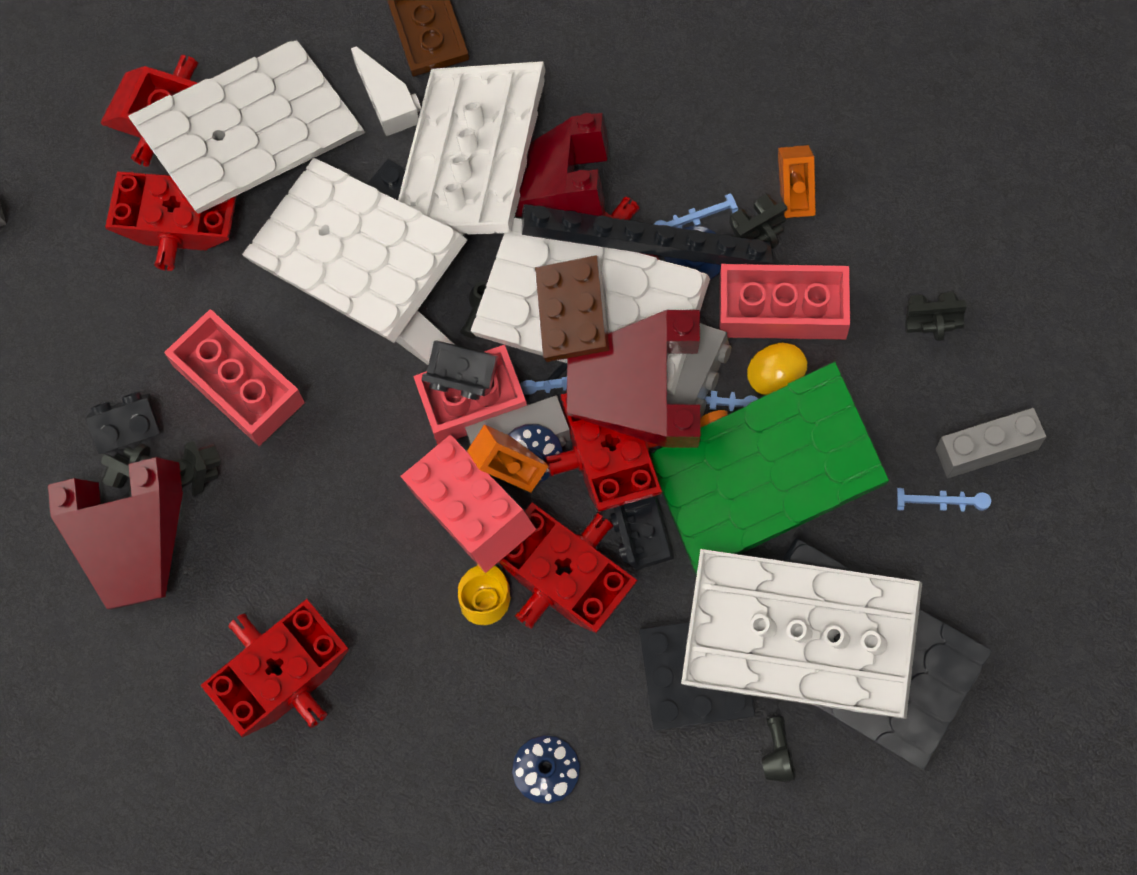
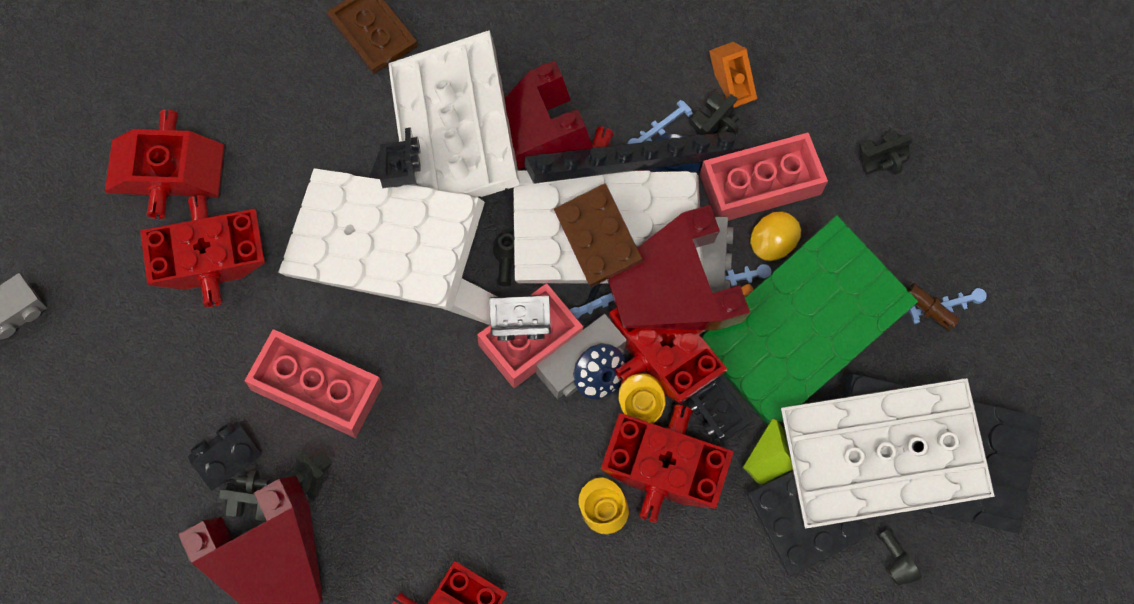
camera: 30 degrees left, 0 degrees up
(266, 111) = (261, 138): white piece -> none
(388, 94) = (358, 95): white slope -> none
(397, 173) = (400, 161): none -> black bracket
(468, 503) = (566, 430): coral brick -> none
(506, 459) = (586, 382): orange slope -> none
(564, 495) = (642, 397): none -> yellow hat
(674, 600) = (770, 456): none -> lime slope
(919, 495) = (933, 308): none -> reddish brown pin
(990, 443) = (970, 245): light grey brick -> none

